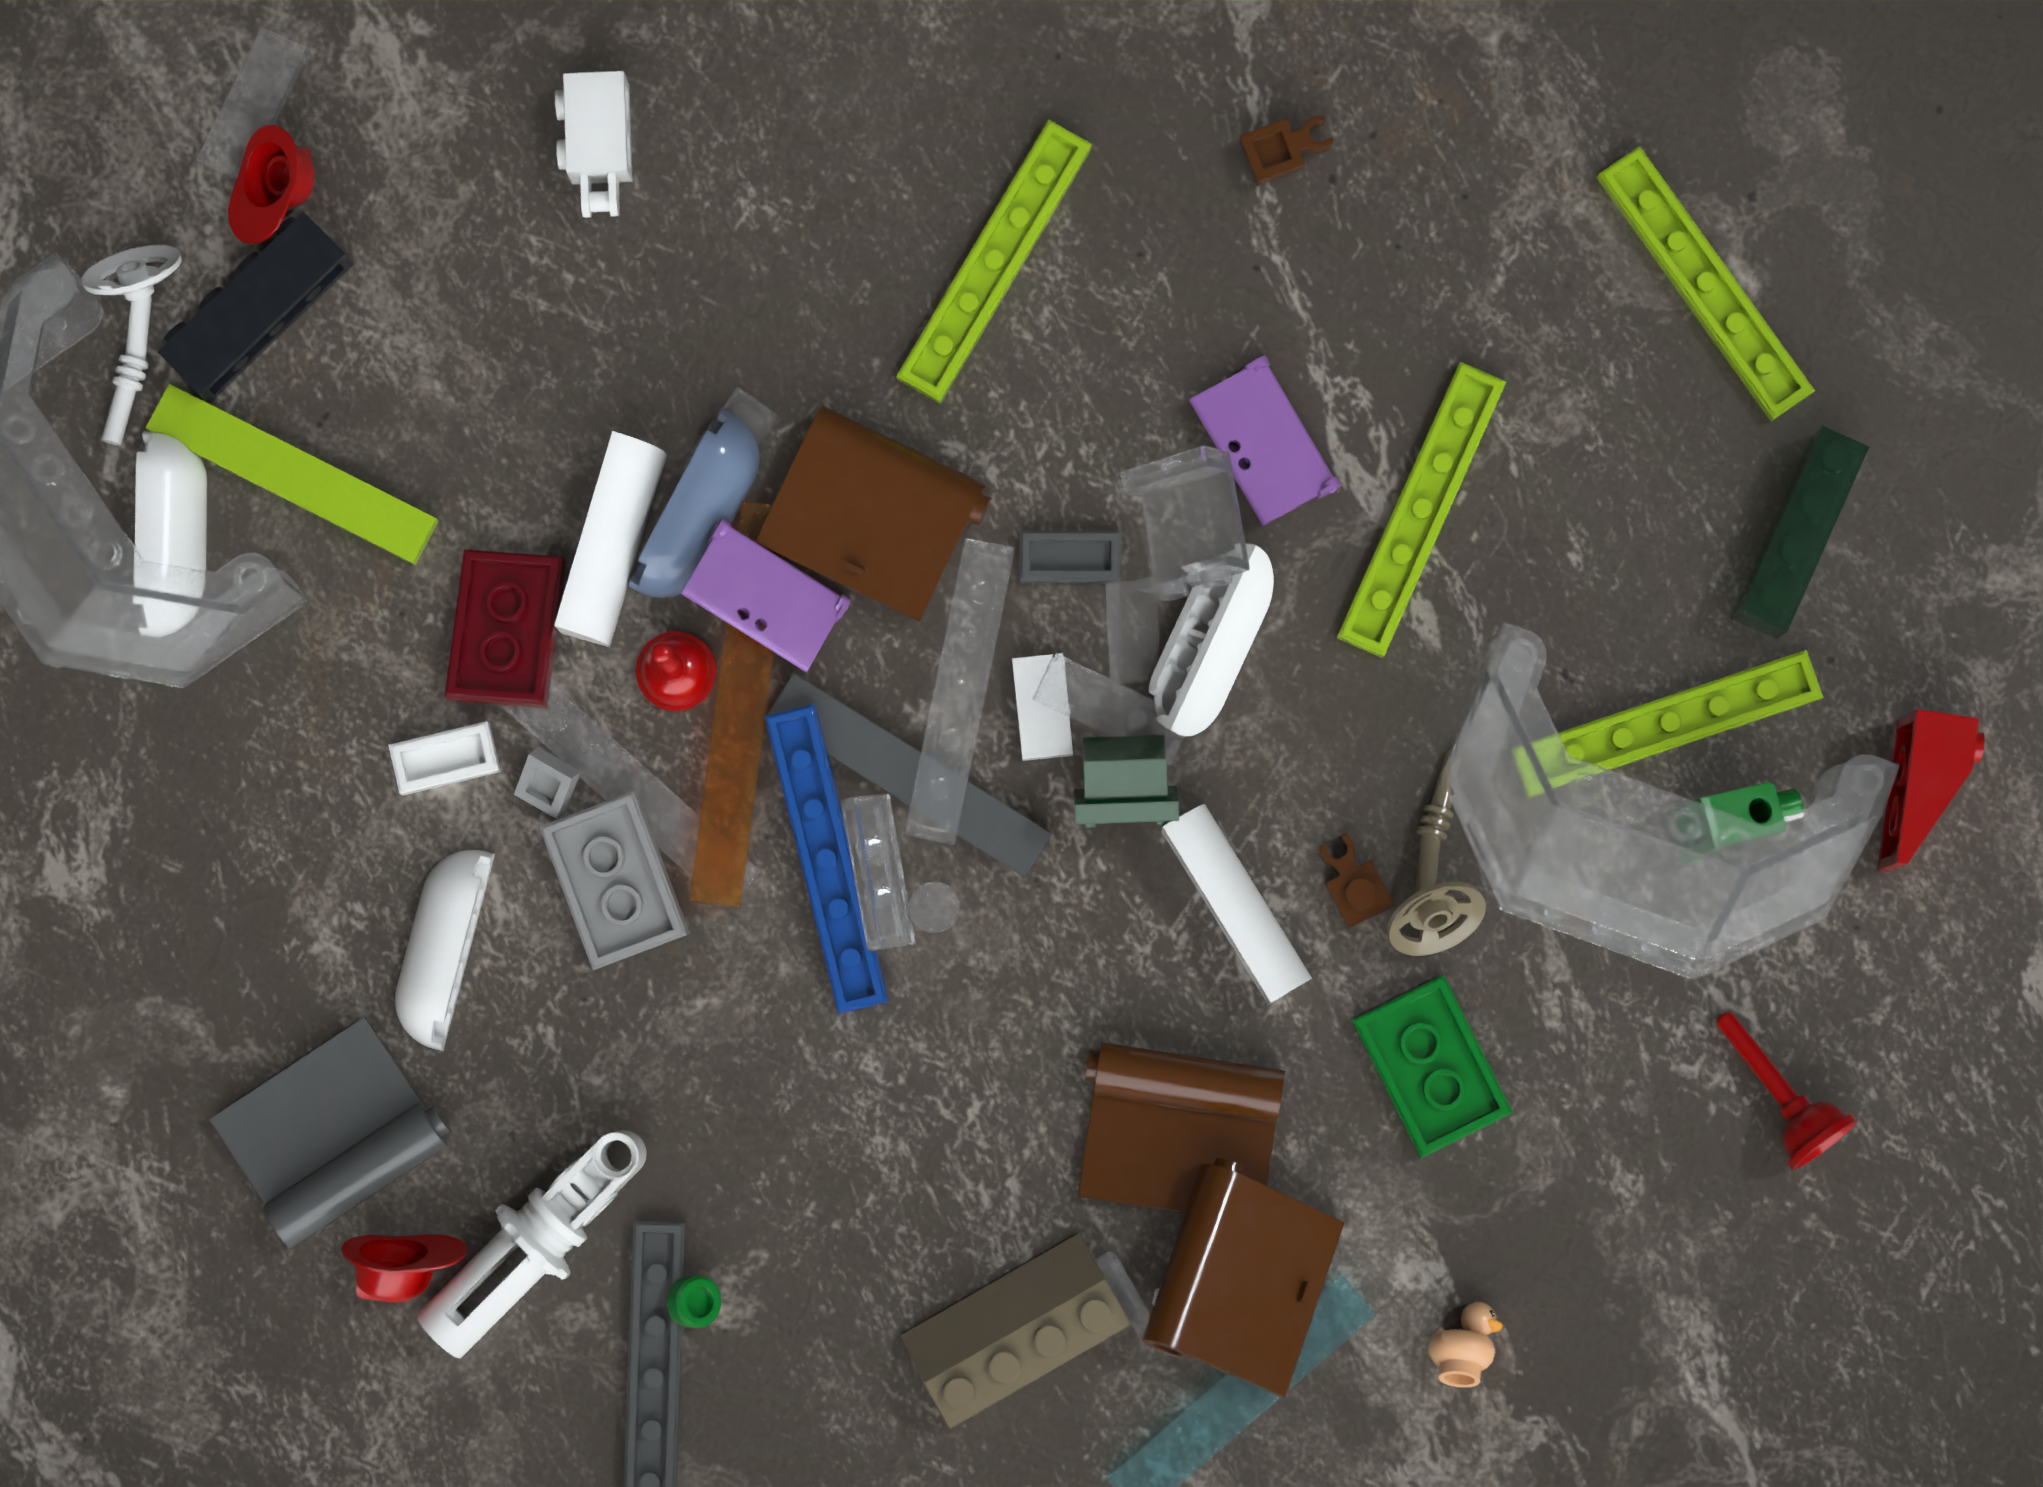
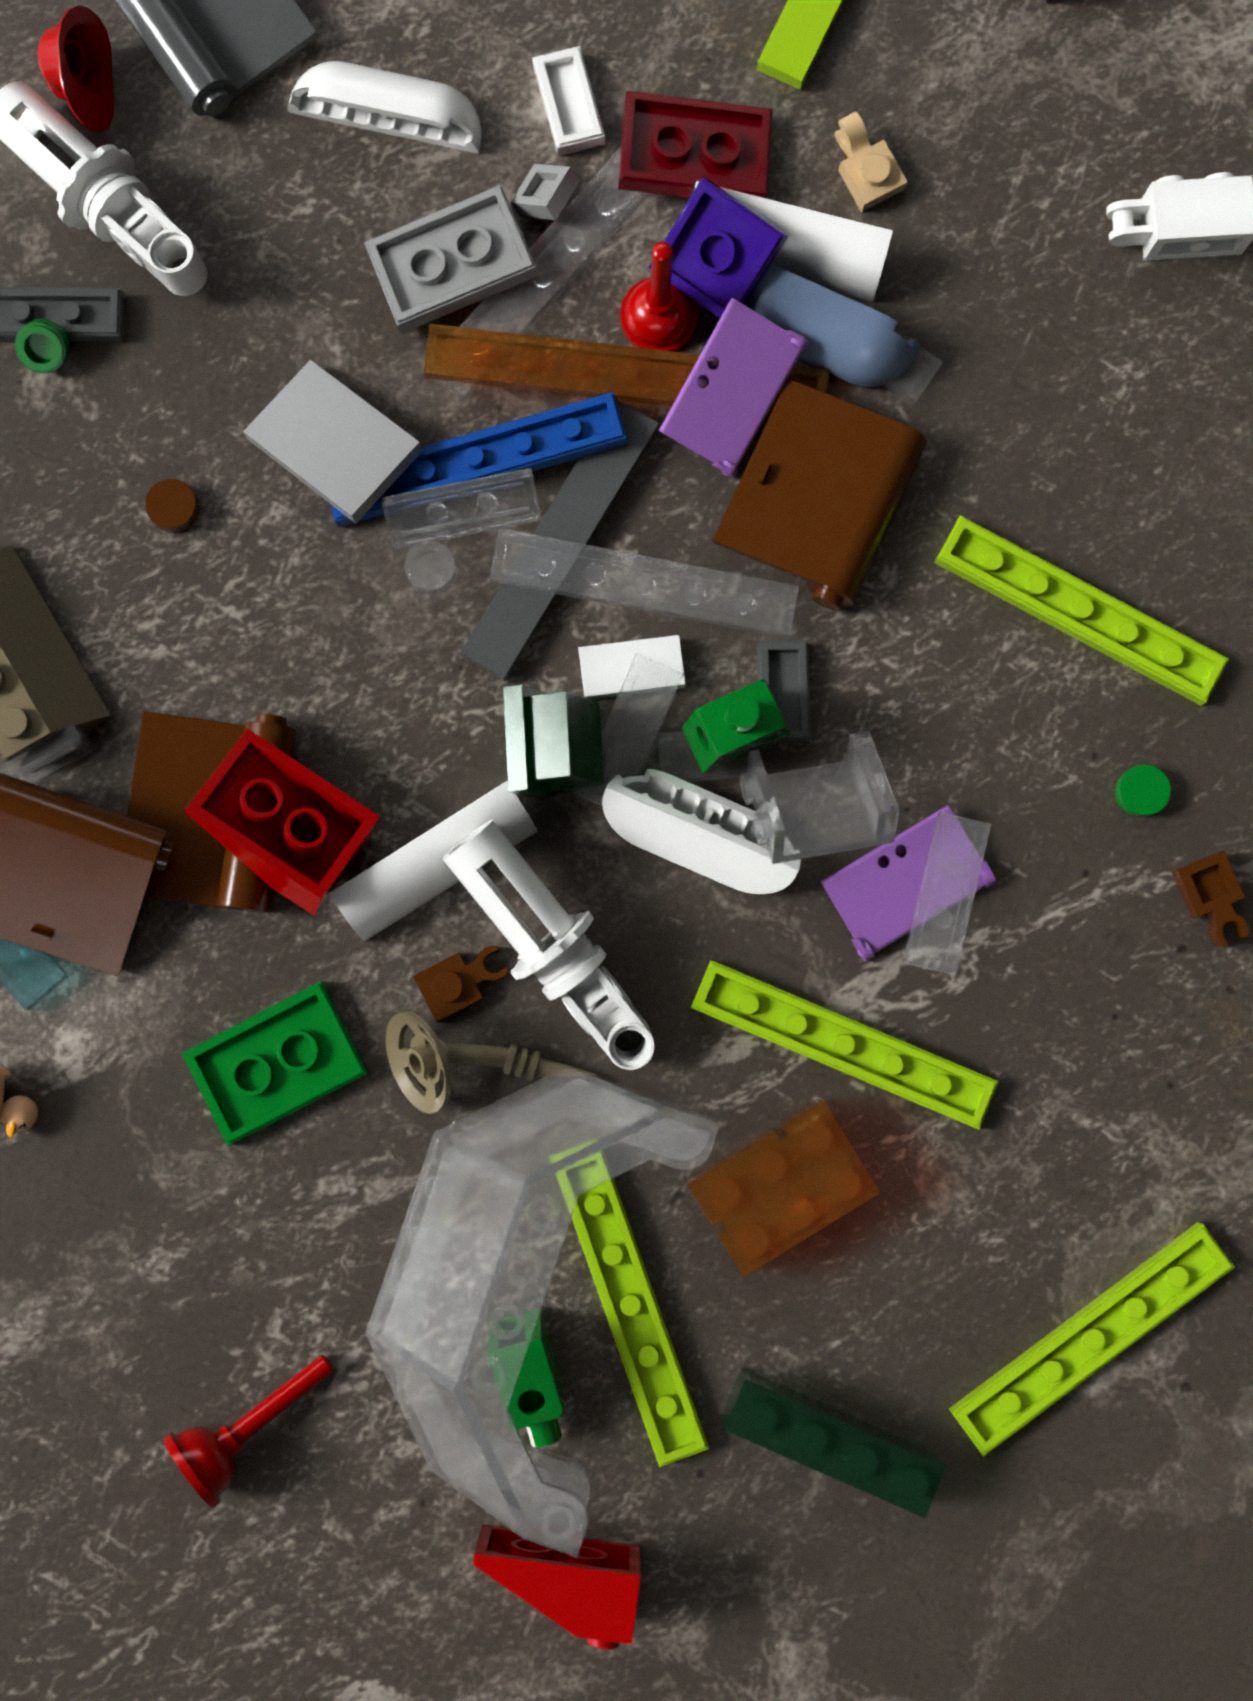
camera: 80 degrees right, 0 degrees up
(532, 452) = (869, 170): none -> tan plate
(625, 606) = (720, 248): none -> dark purple tile
(805, 1001) = (333, 441): none -> light grey tile
(864, 1169) = (172, 505): none -> reddish brown tile
(1113, 602) = (735, 726): none -> green torso
(1177, 209) = (1142, 790): none -> green tile
(1200, 1044) = (283, 821): none -> red slope
(1278, 403) = (947, 893): none -> clear tile
(1331, 778) = (563, 958): none -> white piece
(1562, 571) = (782, 1189): none -> clear orange piece

